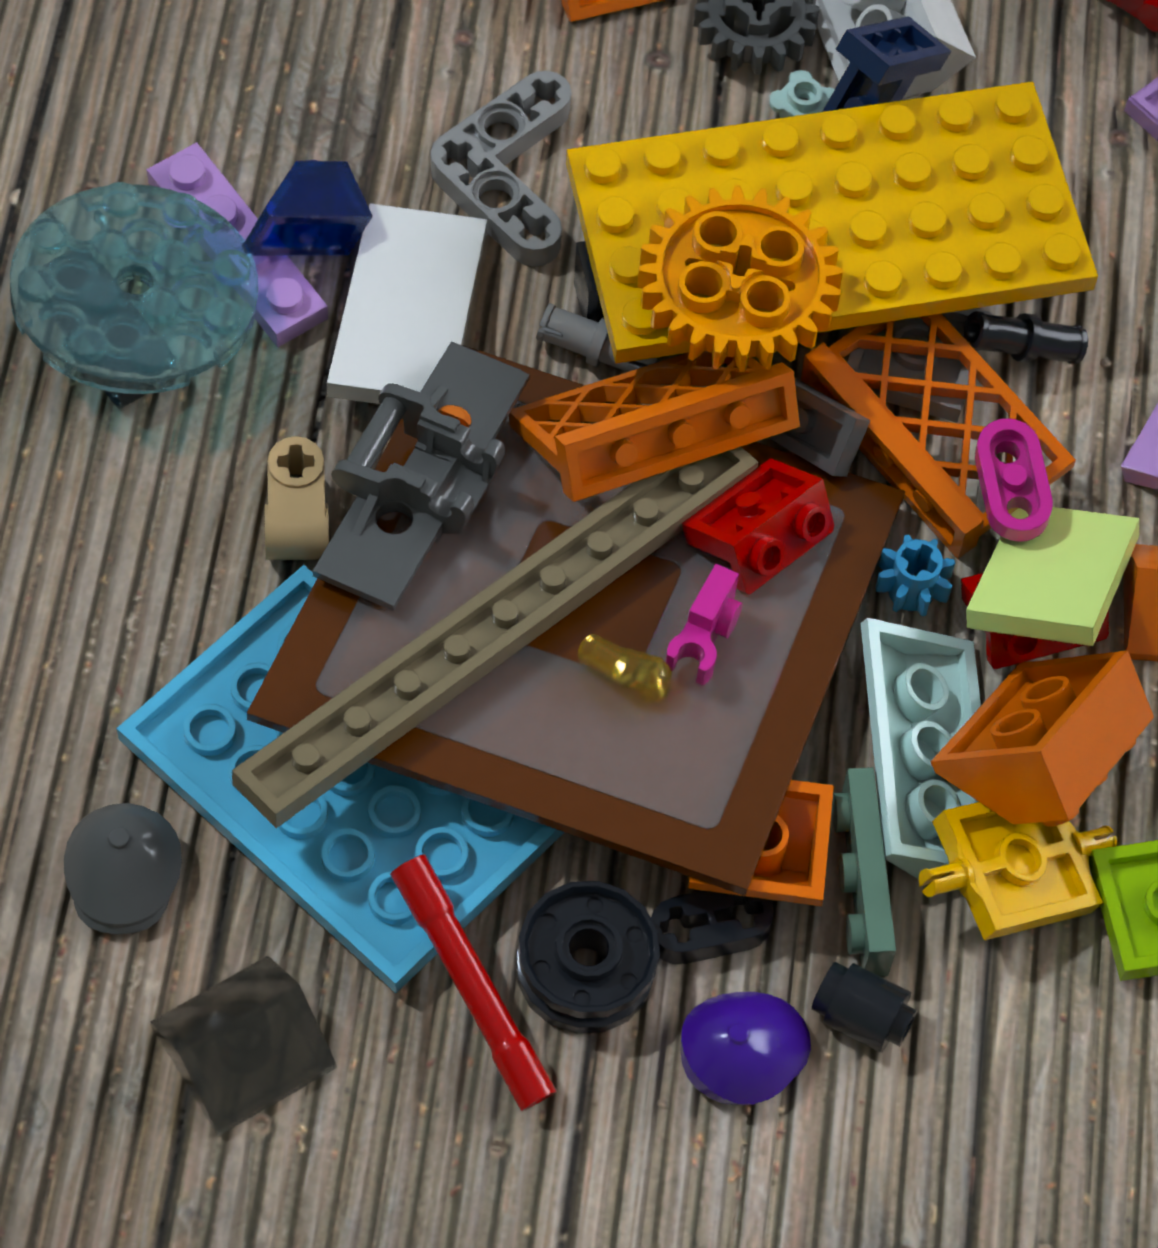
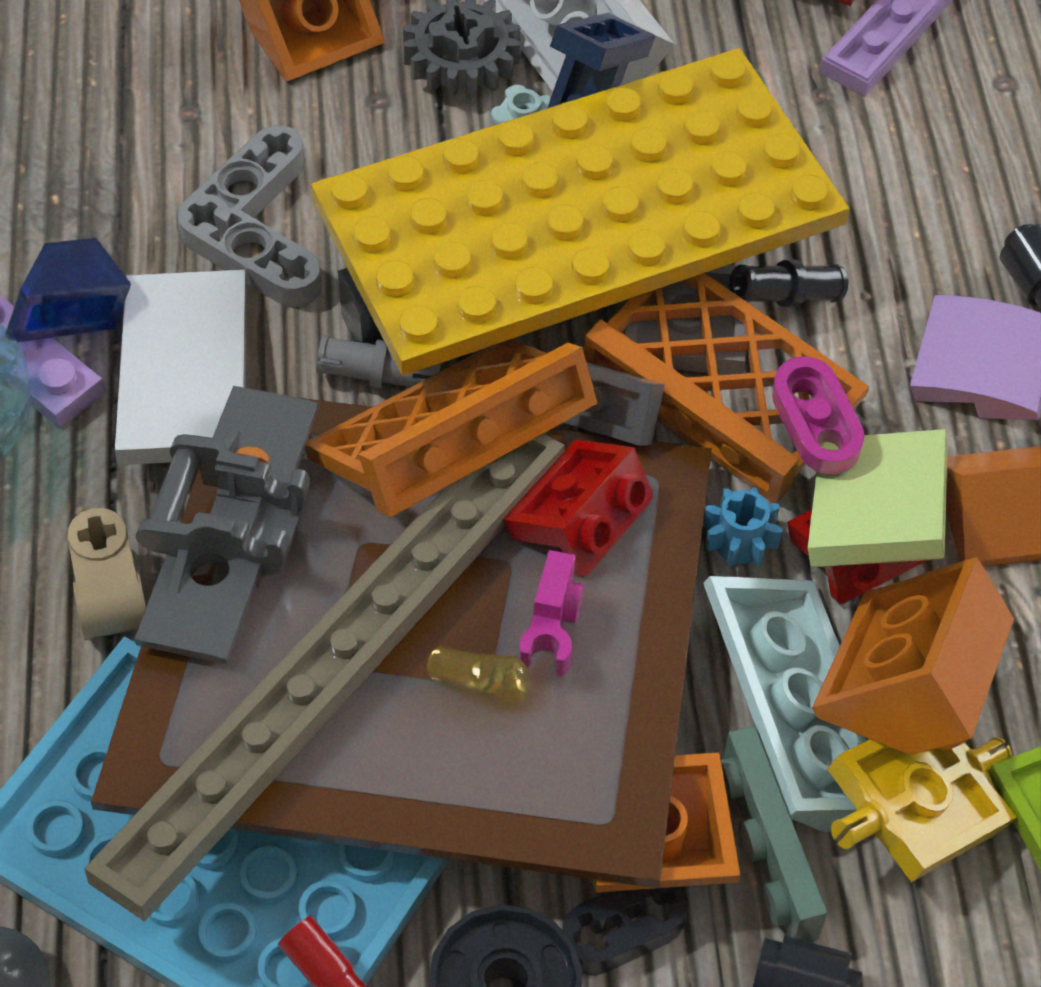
camera: 10 degrees left, 5 degrees down
(739, 278) = (500, 267): light orange gear -> none

